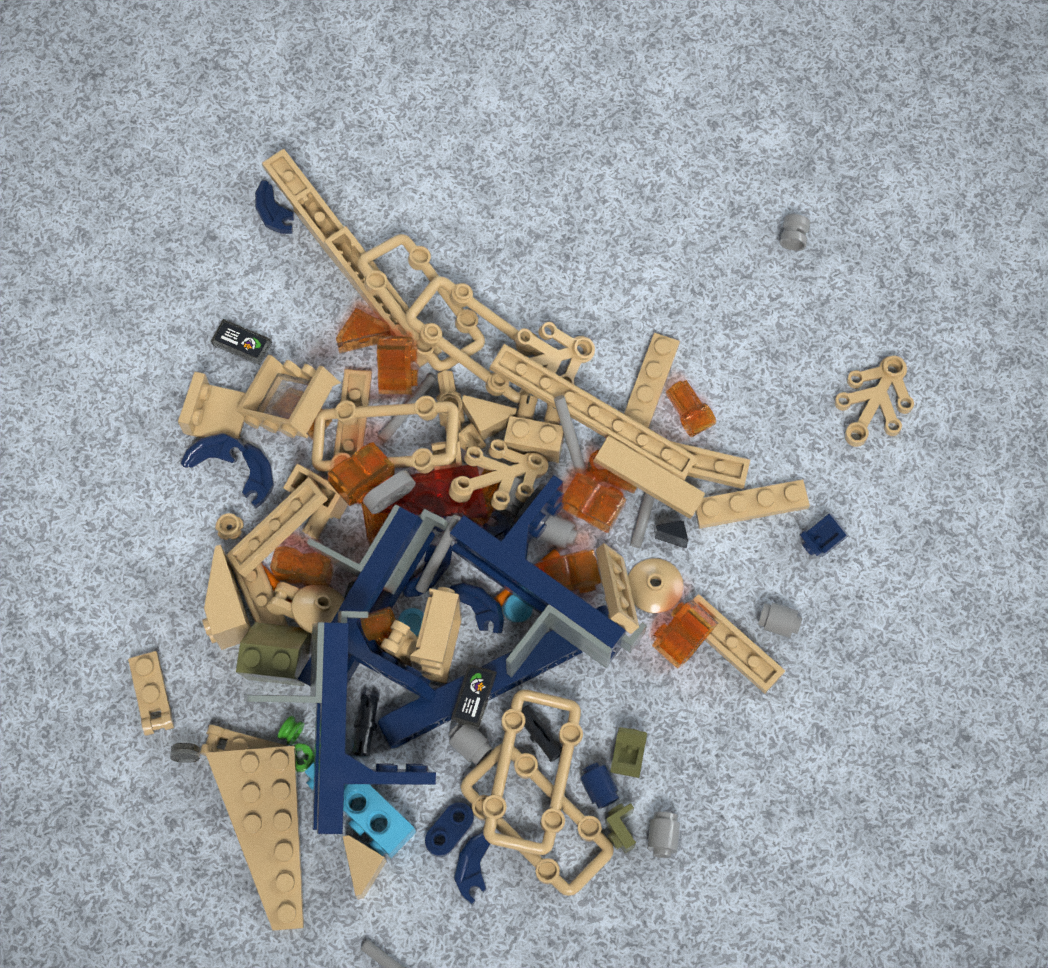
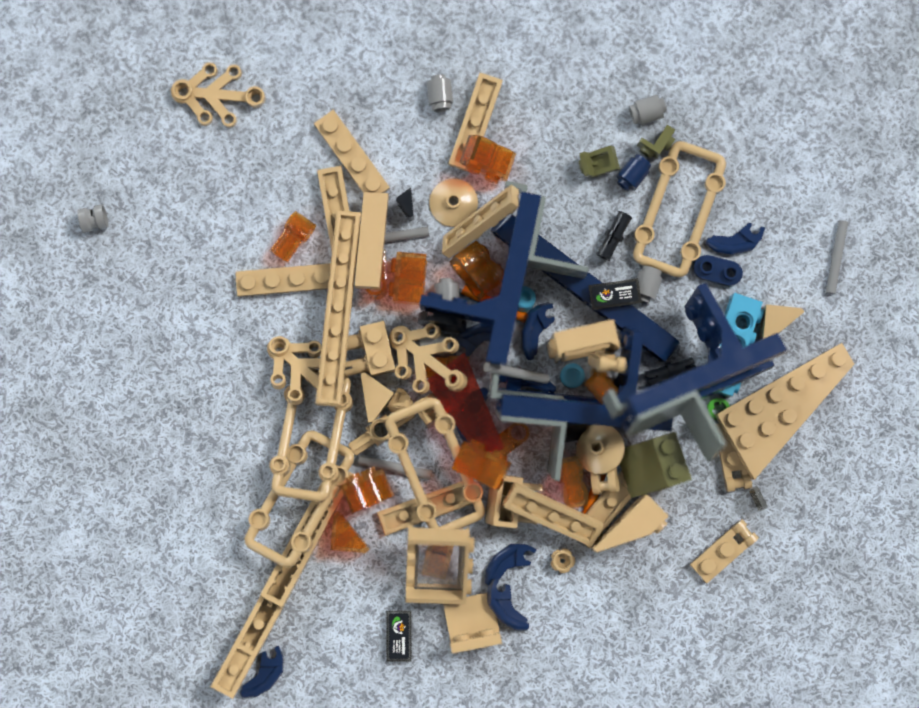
camera: 115 degrees left, 15 degrees up
(389, 492) = (486, 435): light grey beam -> none
(495, 806) = (619, 255): tan bar -> none
(570, 434) = (365, 318): light grey bar -> none
(823, 536) = (355, 87): dark blue bracket -> none

